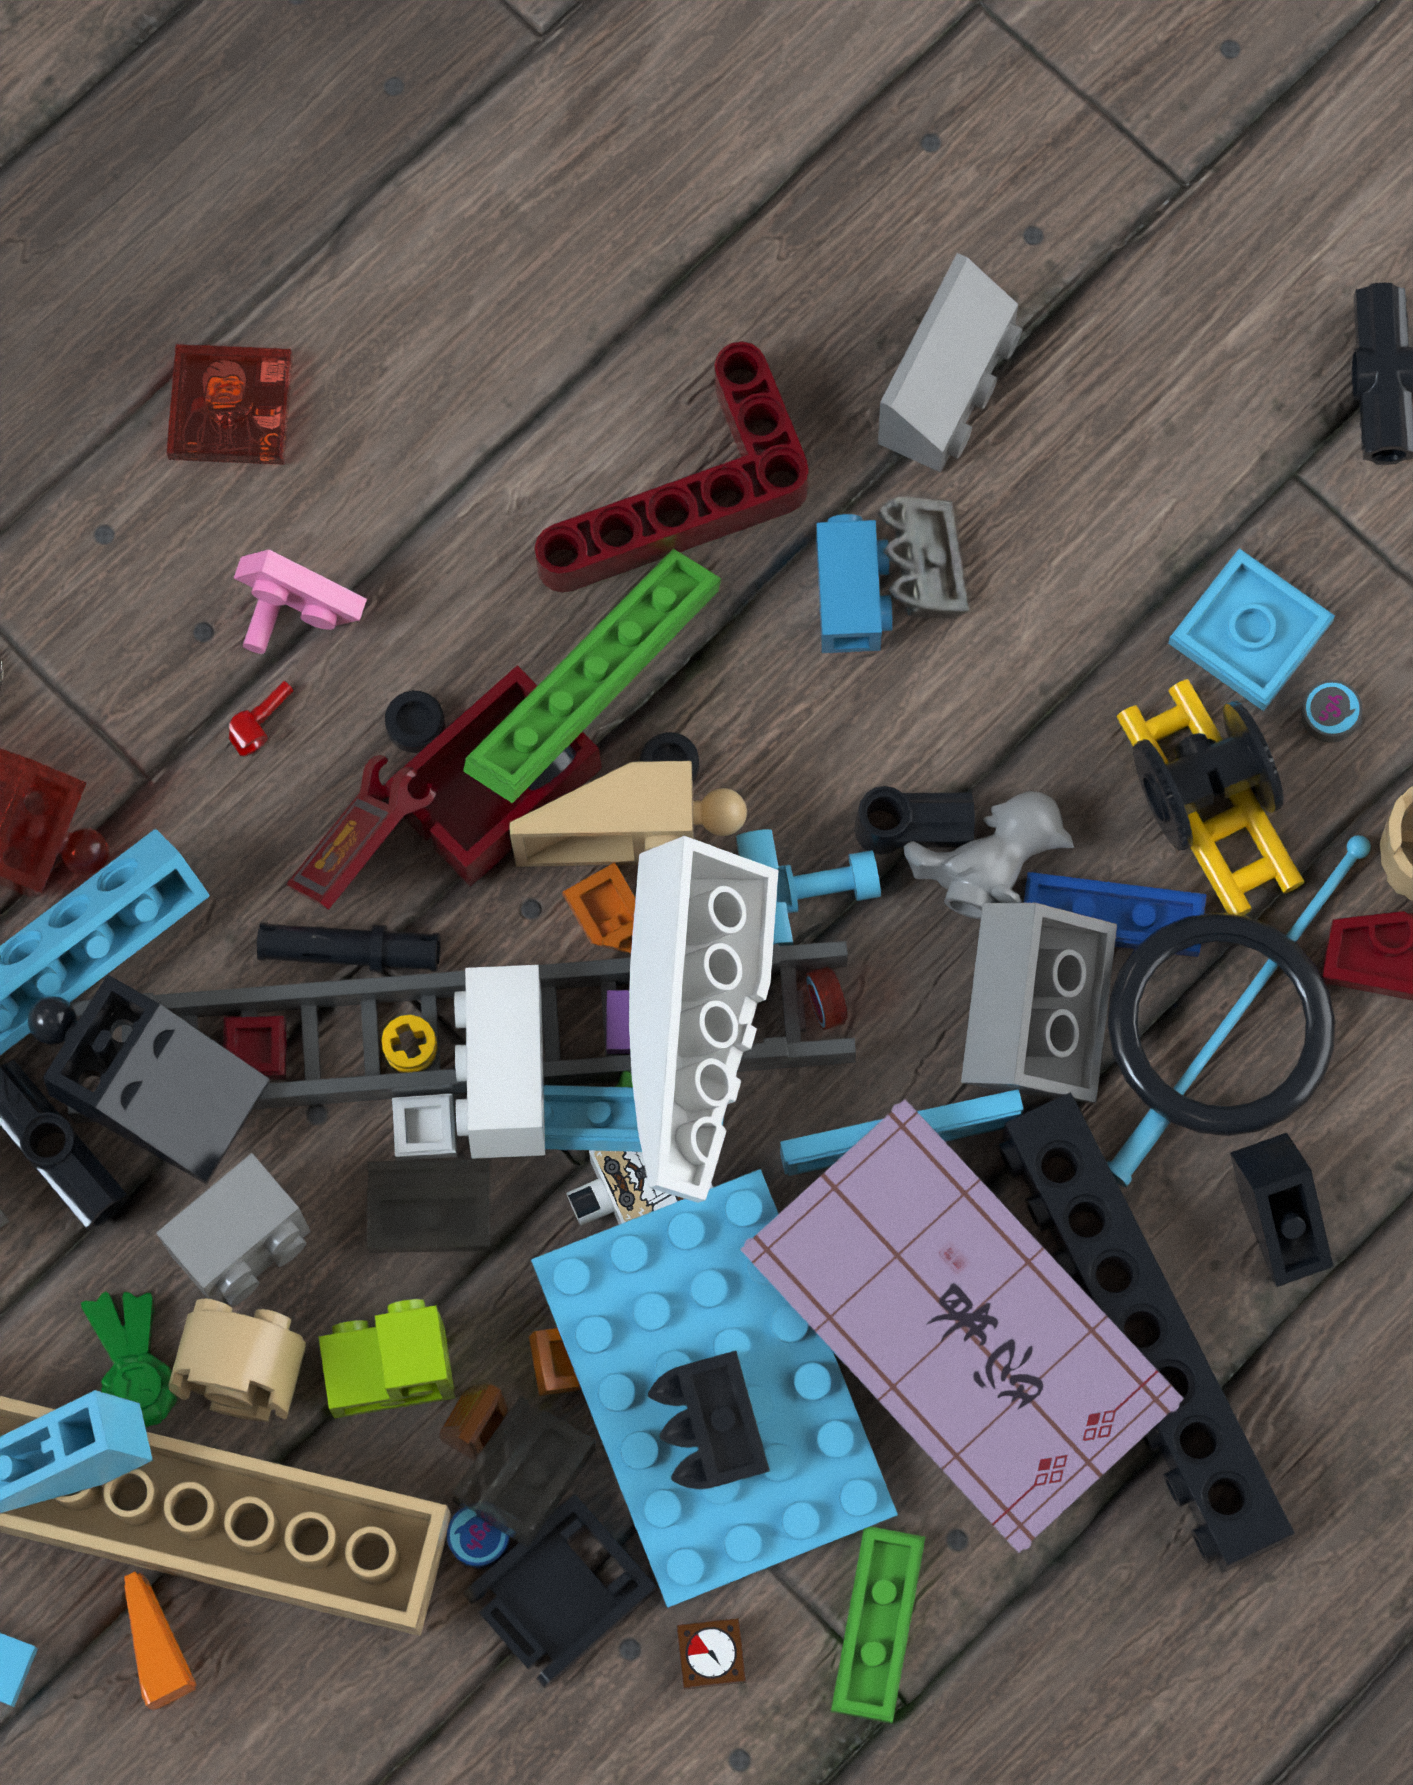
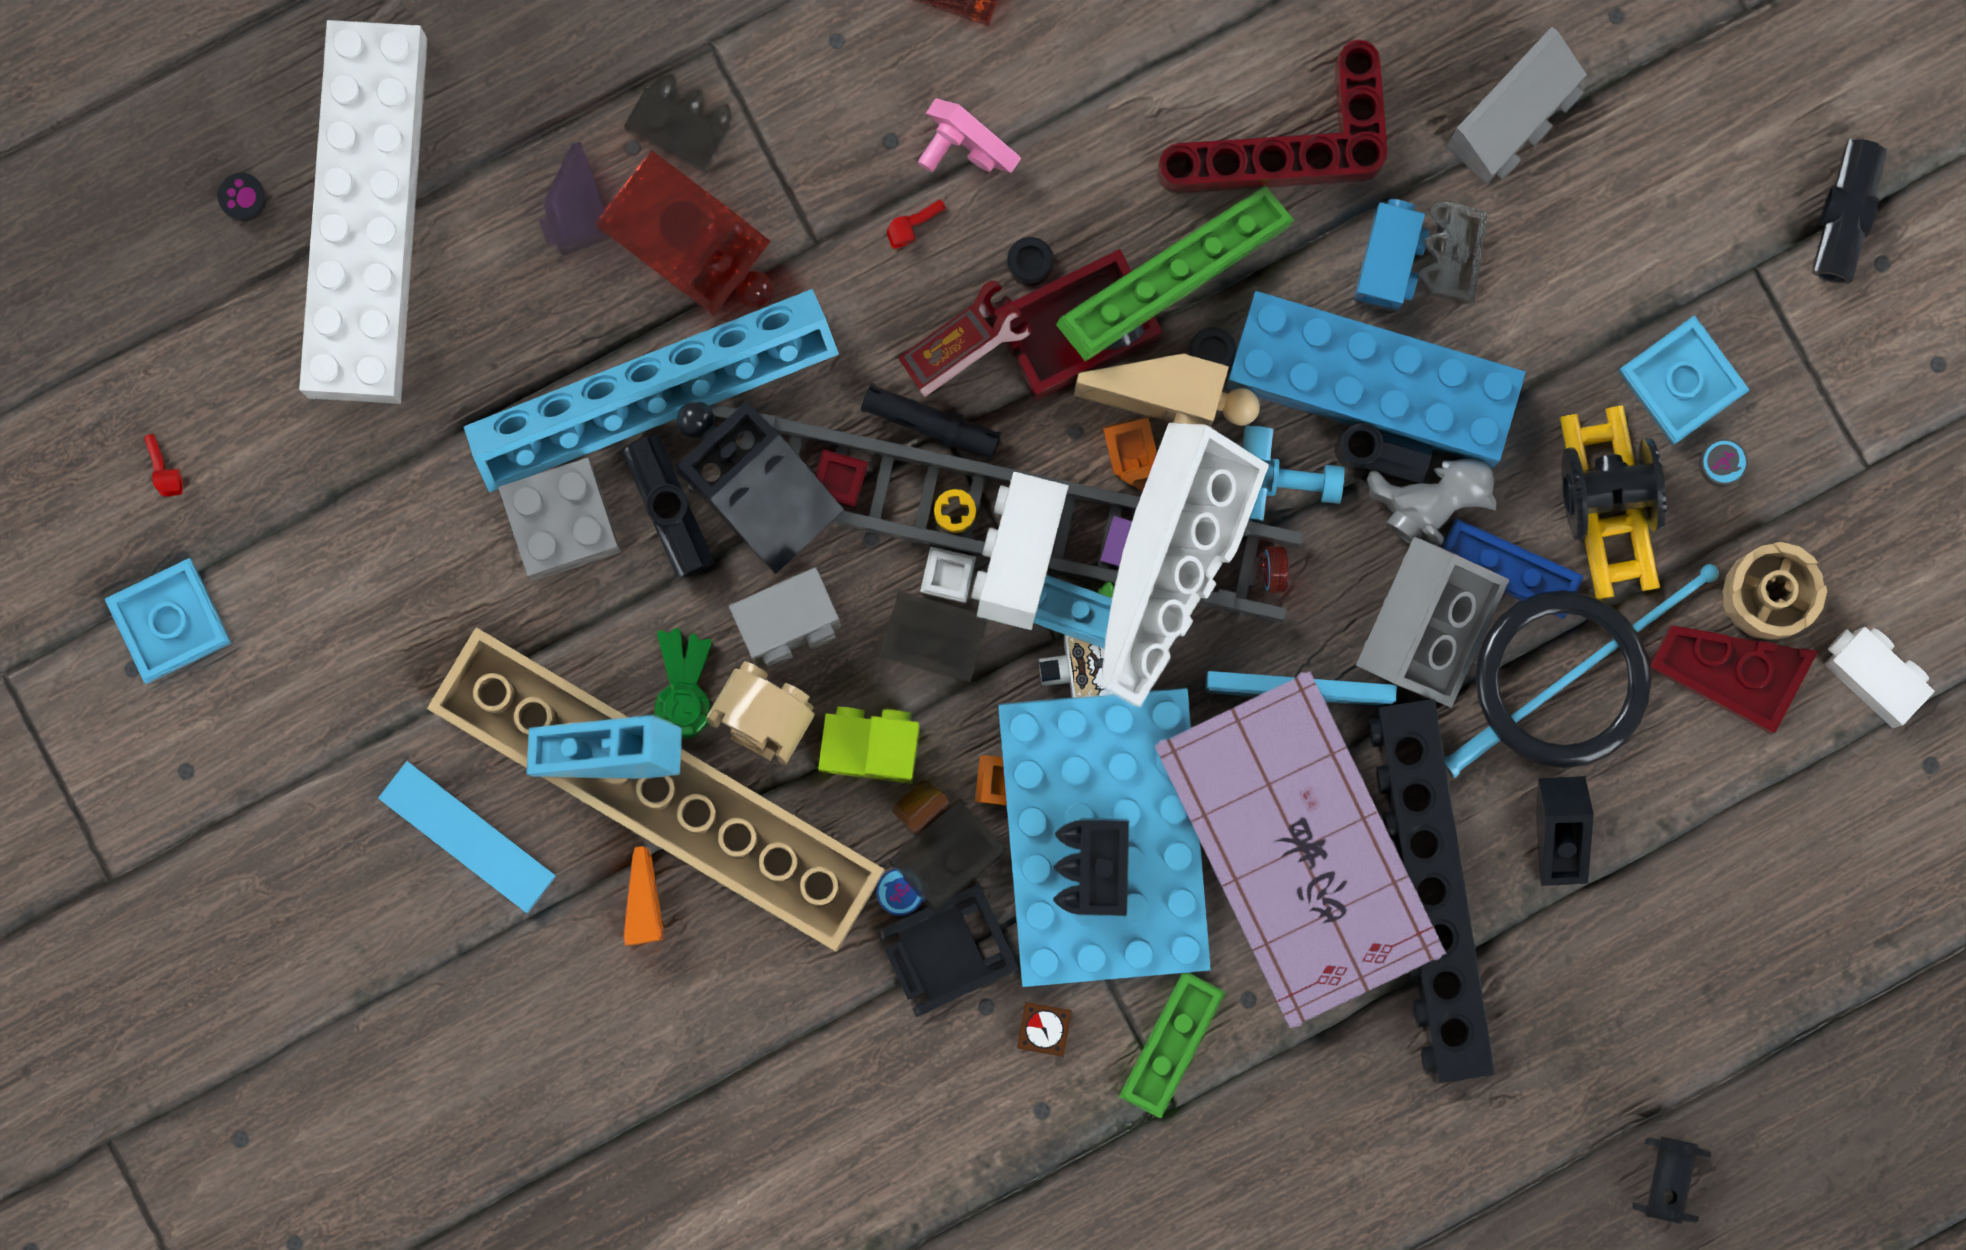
camera: 10 degrees right, 10 degrees up
(859, 729) = (1375, 378): none -> dark azure brick

